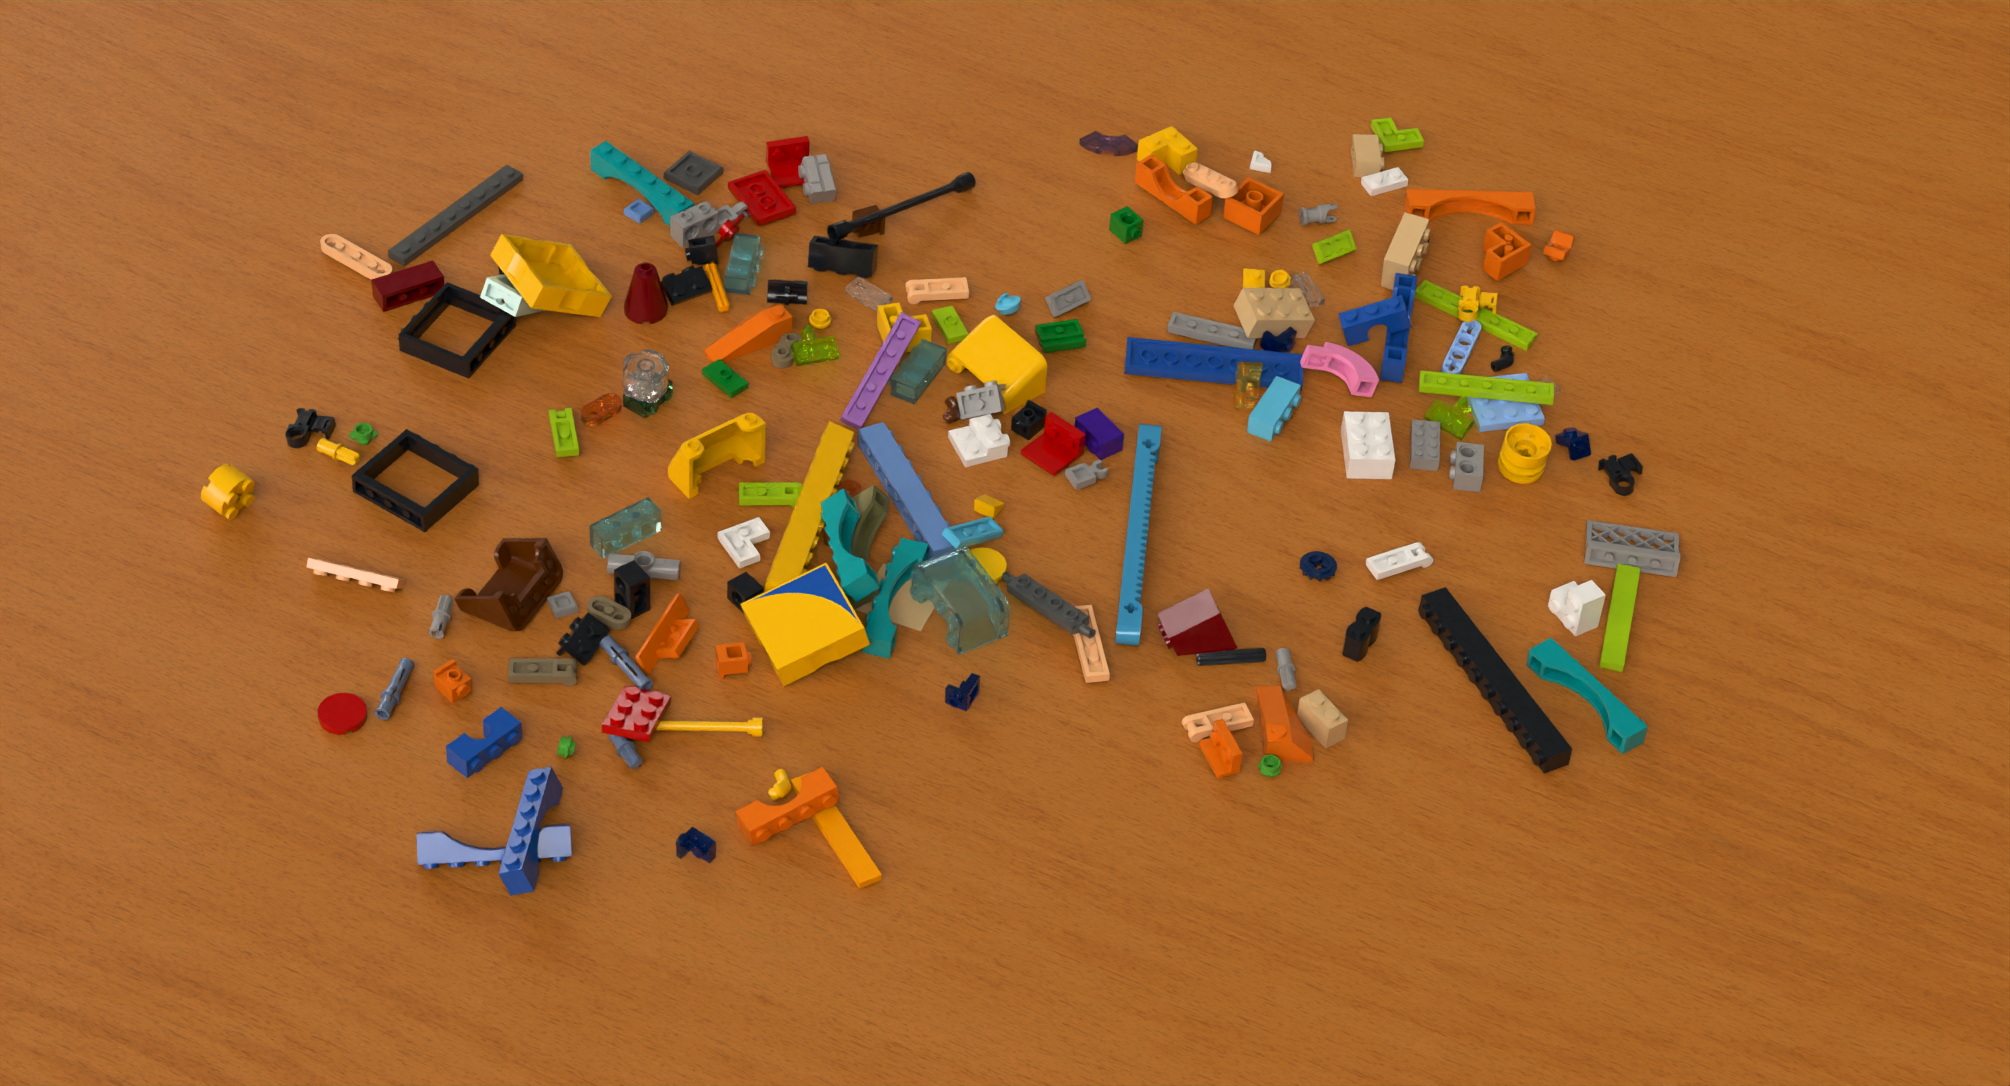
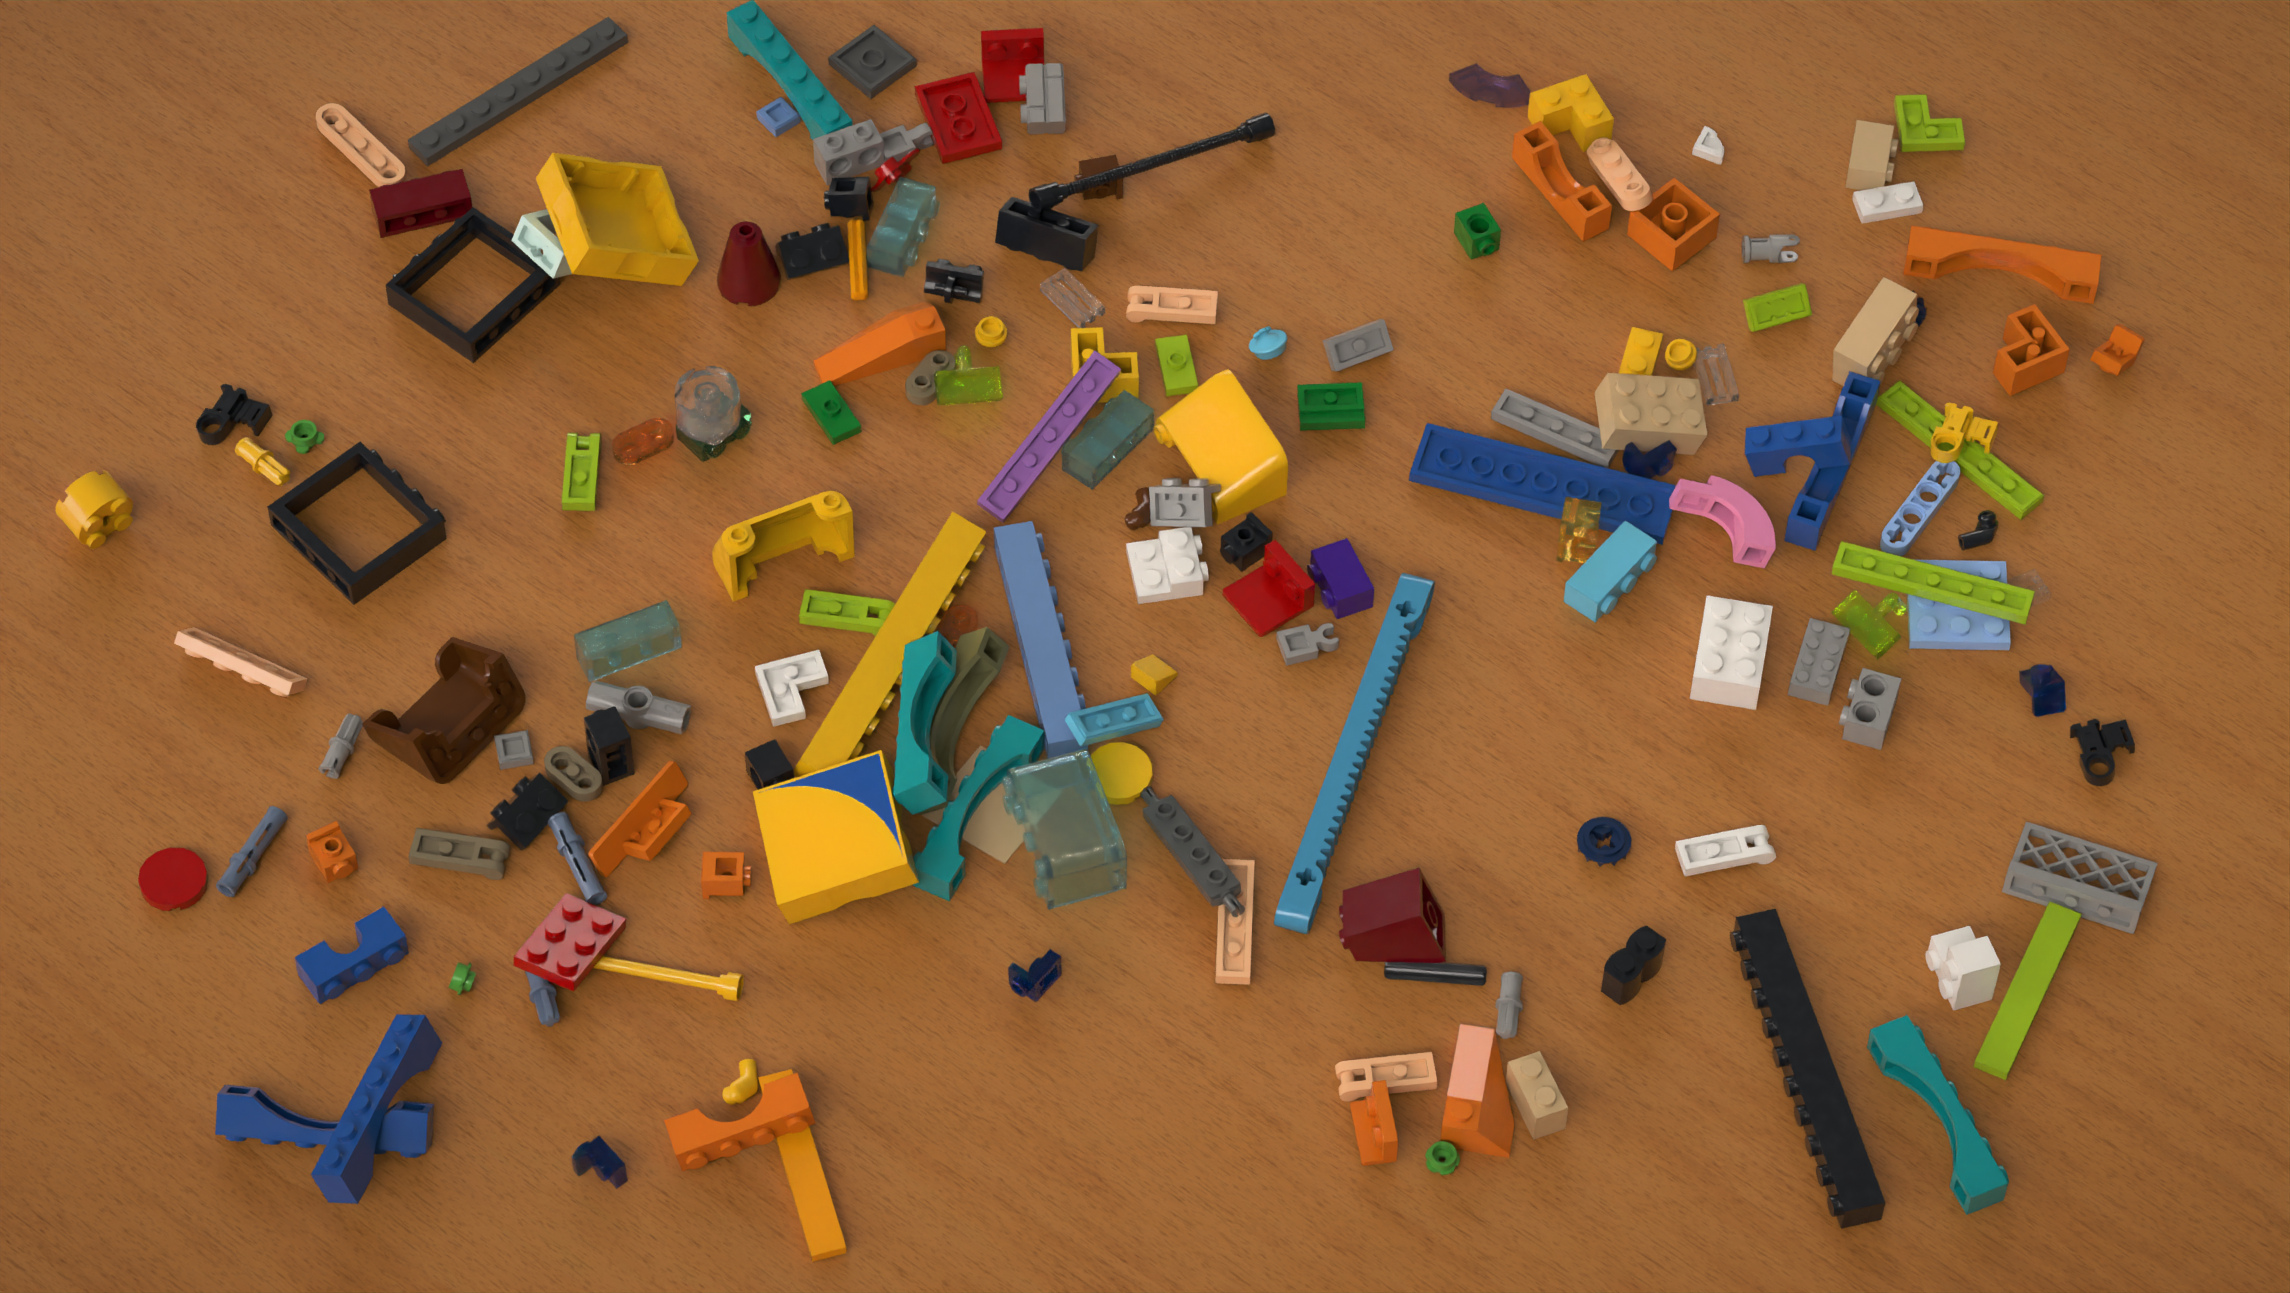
camera: 15 degrees right, 10 degrees up
(1524, 453) = (1958, 701): yellow wheel -> none

